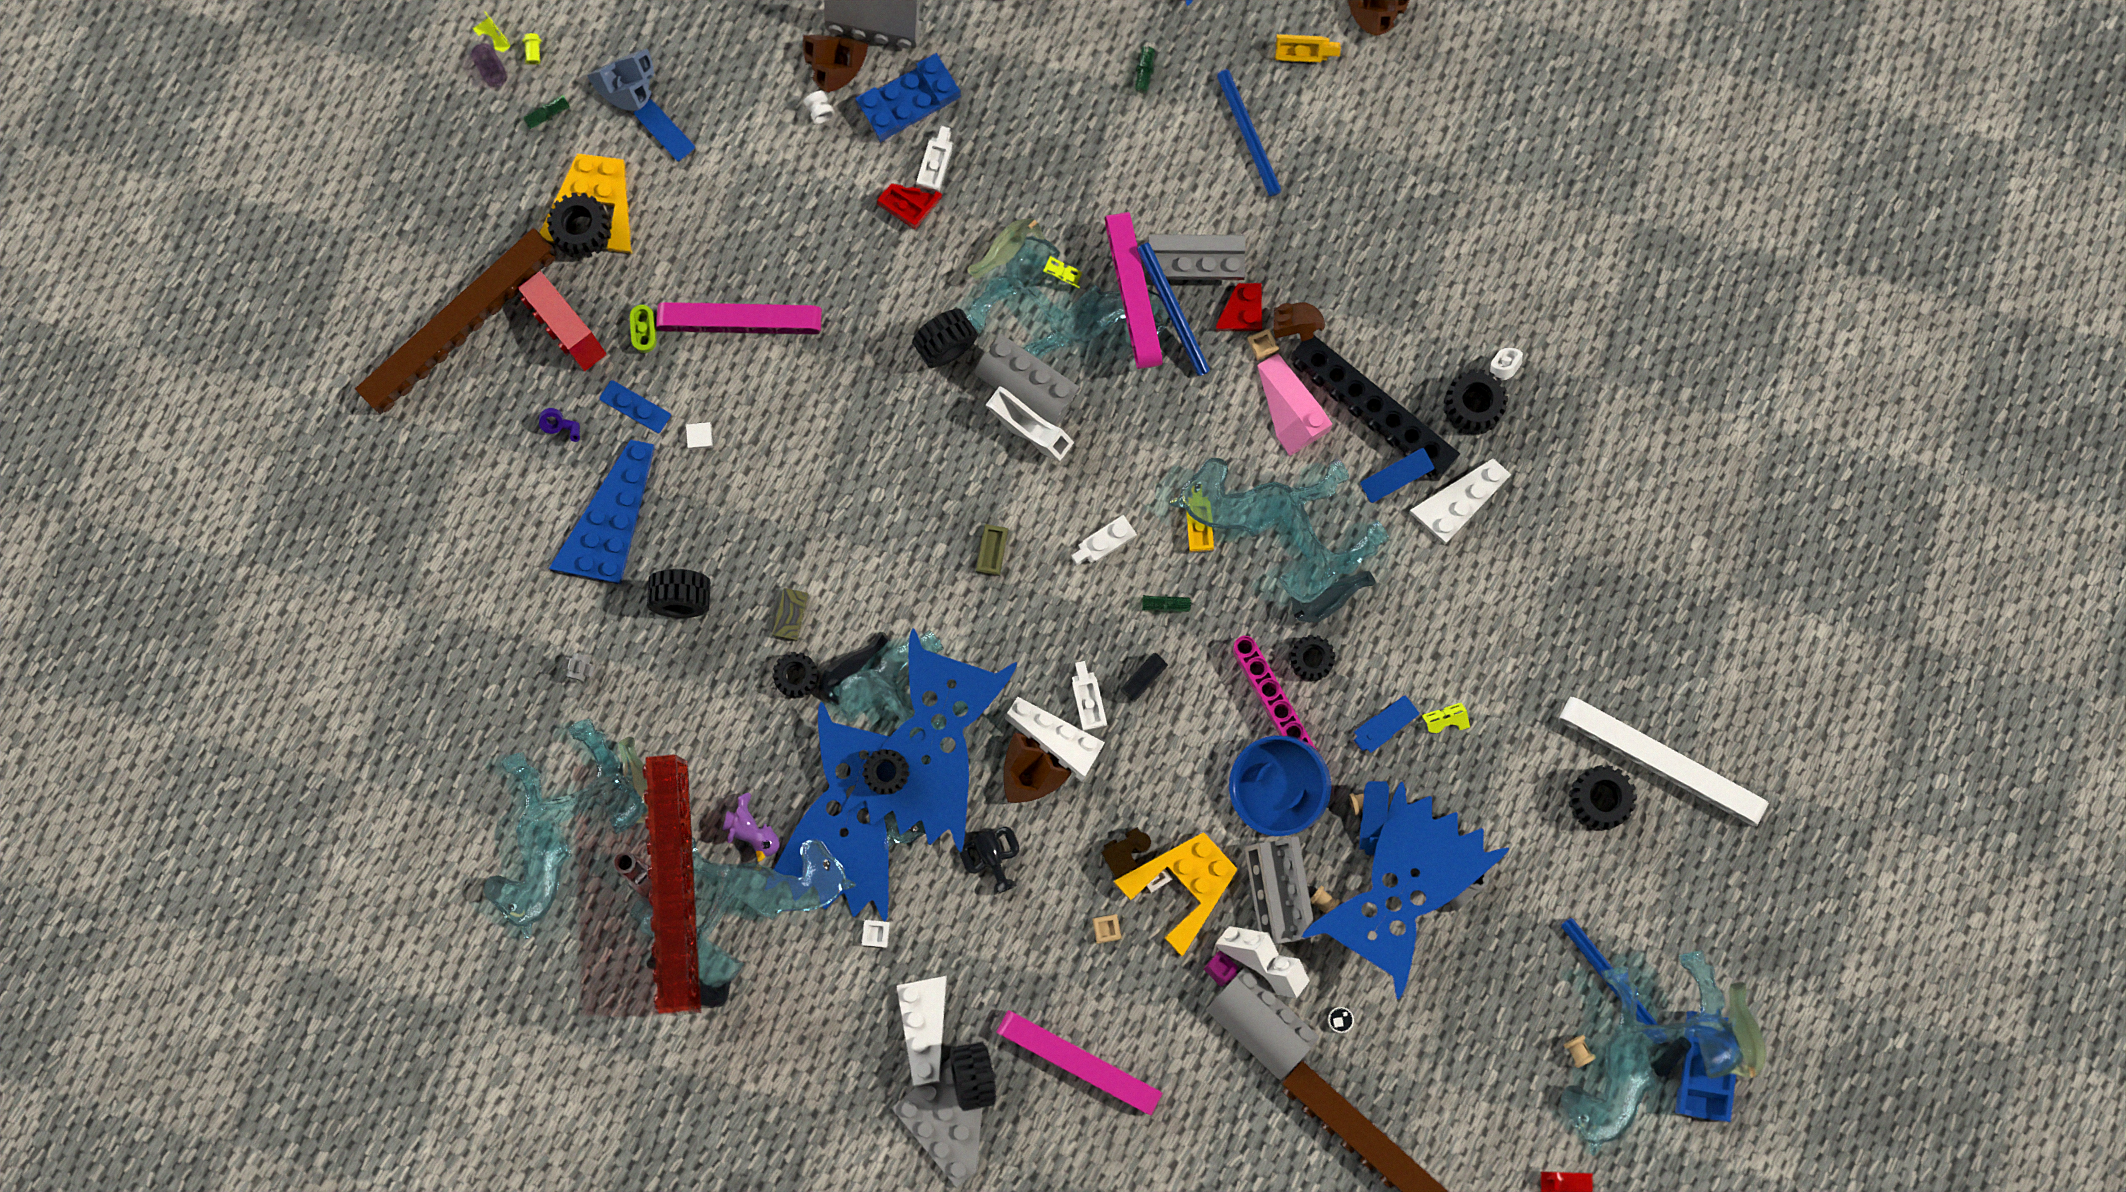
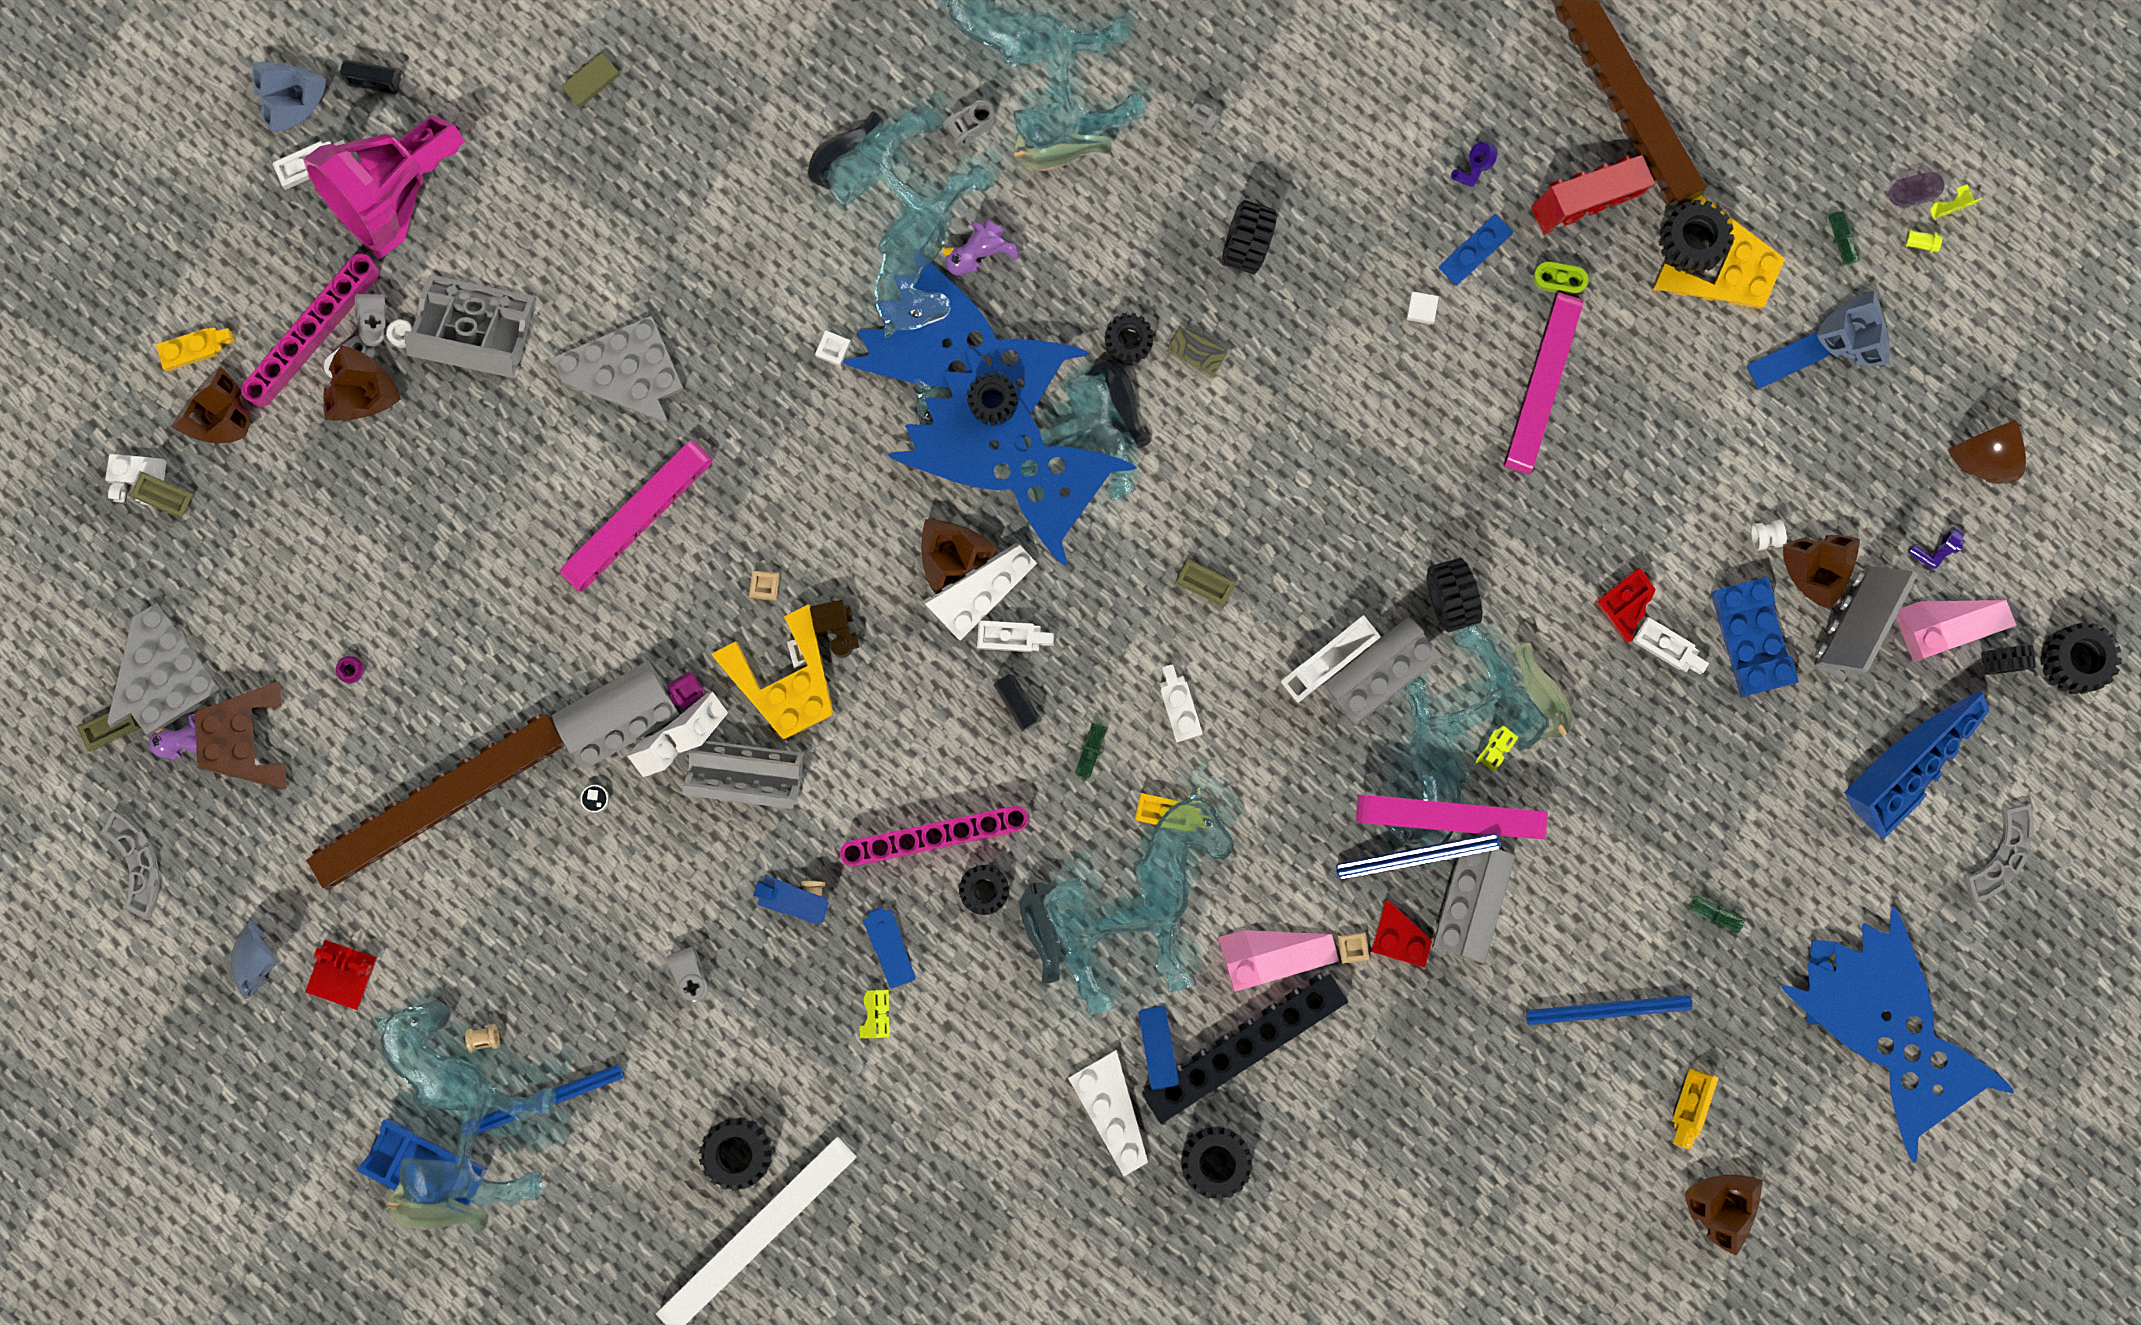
camera: 105 degrees right, 5 degrees up
(605, 531) = (1347, 185): blue wing -> none
(672, 886) = (936, 148): clear red brick -> none
(922, 1017) = (724, 369): white wing -> none
(973, 1076) = (650, 398): black tyre -> none
(991, 855) = (875, 487): black piece -> none
(1280, 785) = (853, 808): blue brick -> none
(1296, 319) = (1367, 991): reddish brown slope -> none
(1324, 901) = (720, 819): tan bush -> none
(1446, 869) = (712, 958): blue piece -> none
(1506, 363) = (1251, 1212): white plate -> none
(1670, 1058) = (443, 1132): black piece -> none

